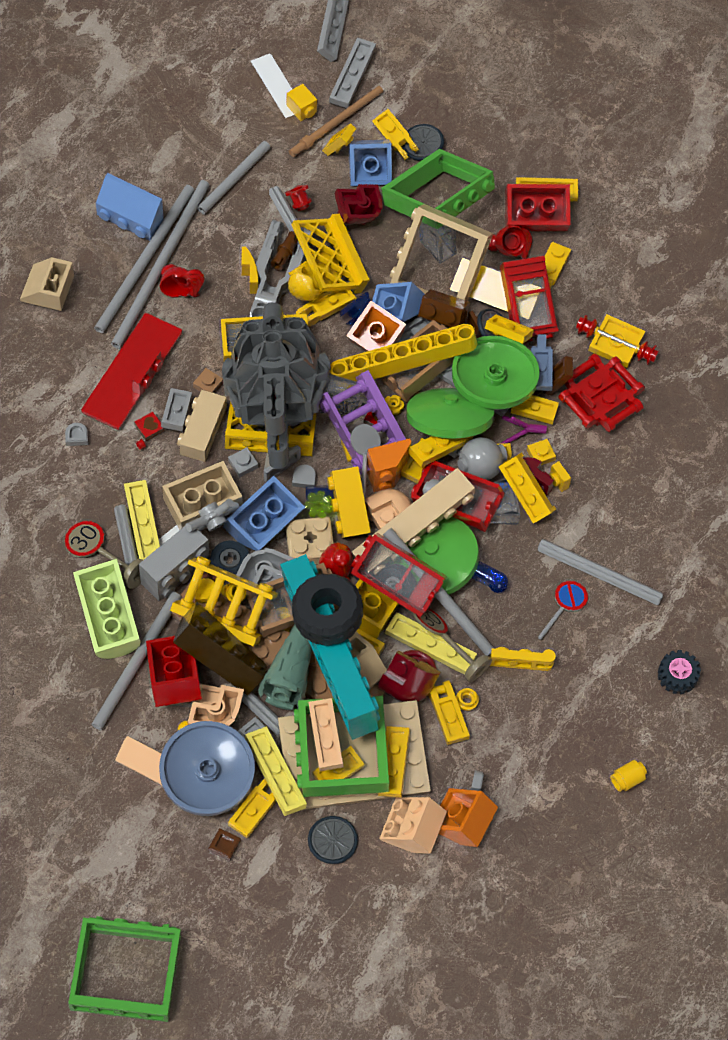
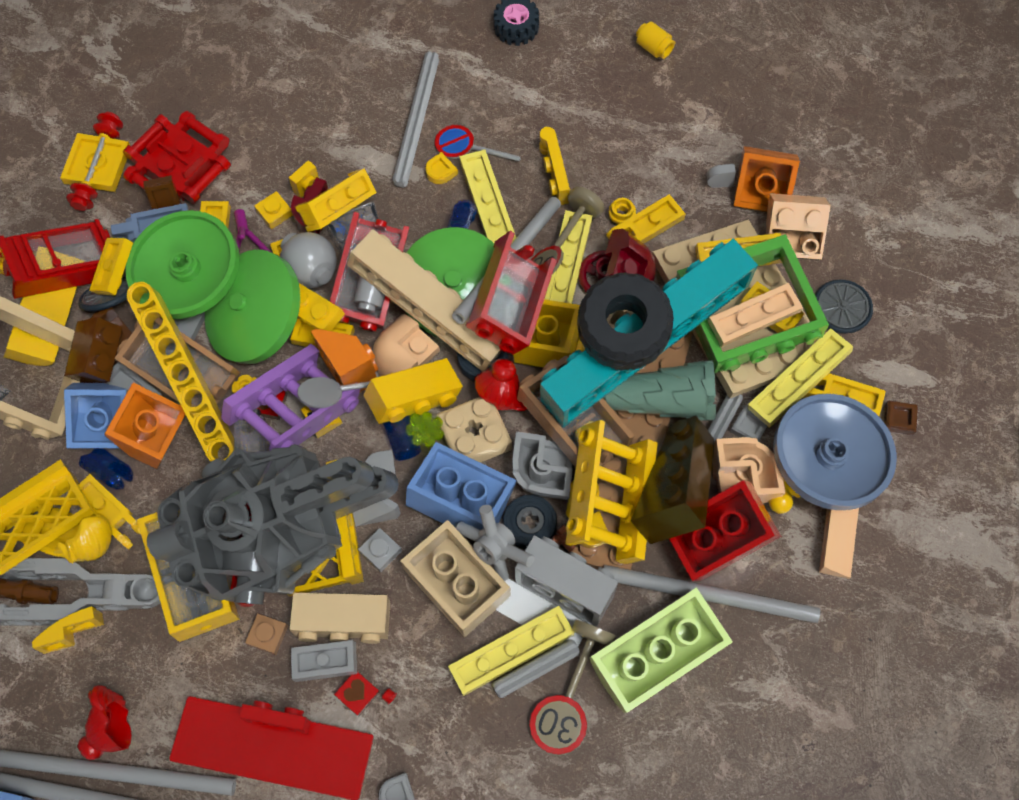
camera: 100 degrees left, 5 degrees up
(505, 602) = (486, 195): none -> light yellow plate
(546, 578) = (440, 169): none -> yellow tile

